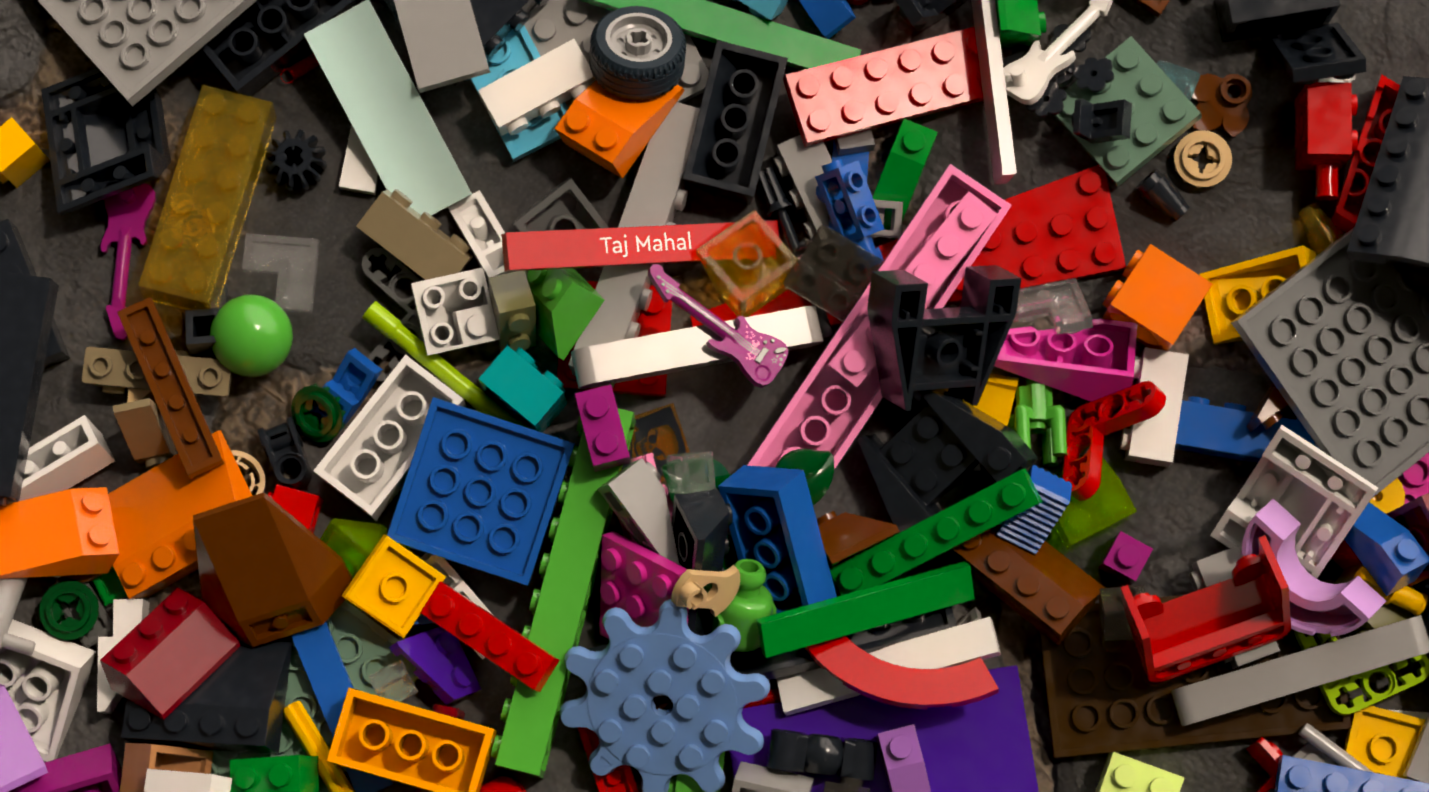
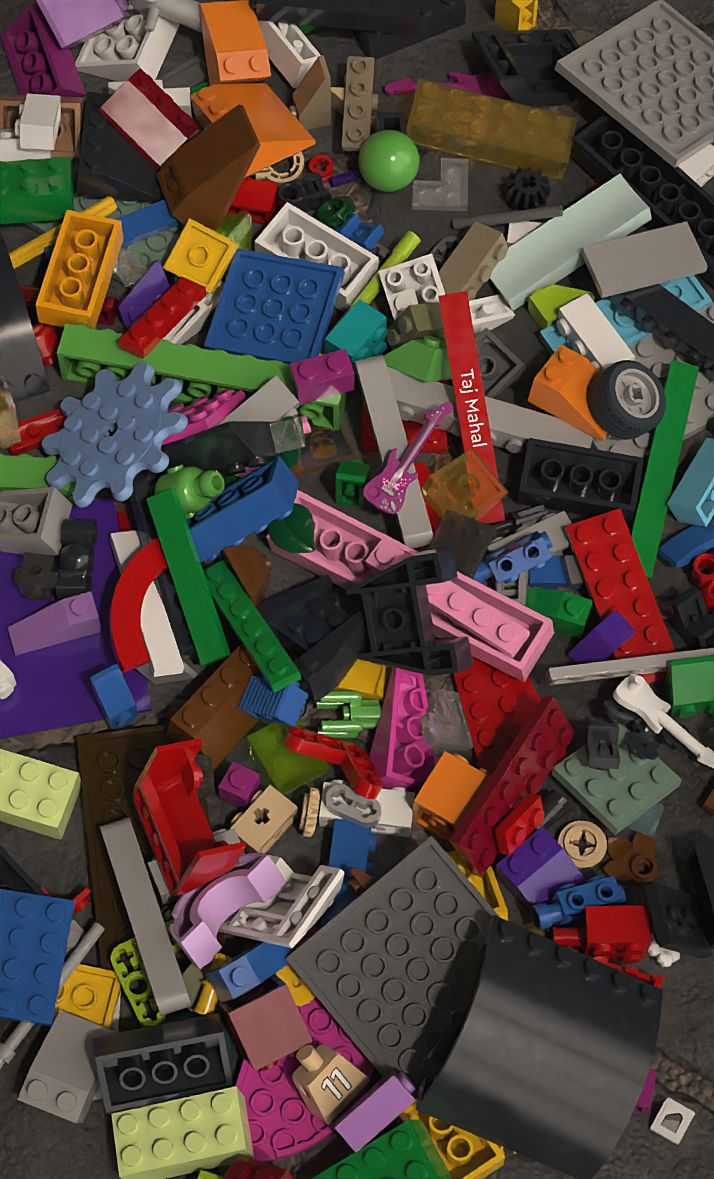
camera: 85 degrees right, 15 degrees down
(51, 611) = (181, 55): dark green gear -> none
(170, 387) = (343, 103): reddish brown plate -> none
(236, 439) = (324, 161): none -> red bush
(258, 400) = (343, 178): none -> dark purple piece
(343, 187) = (509, 217): none -> dark grey piece
(475, 135) = (545, 303): none -> lime slope
(690, 592) = (194, 460): tan piece -> none
(719, 404) = (350, 481): none -> green slope
(956, 111) = (602, 640): none -> dark purple slope
(1018, 706) = (114, 697): none -> blue slope
(1142, 223) = (517, 774): none -> dark red plate
(1163, 474) = (309, 812): none -> tan gear
(1165, 512) = (279, 814): none -> tan brick
(1173, 423) = (349, 812): none -> light grey beam
(1207, 231) = (520, 824): none -> red plate
(1252, 202) = (538, 871): none -> dark purple slope
(1285, 170) = (573, 900): none -> blue brick

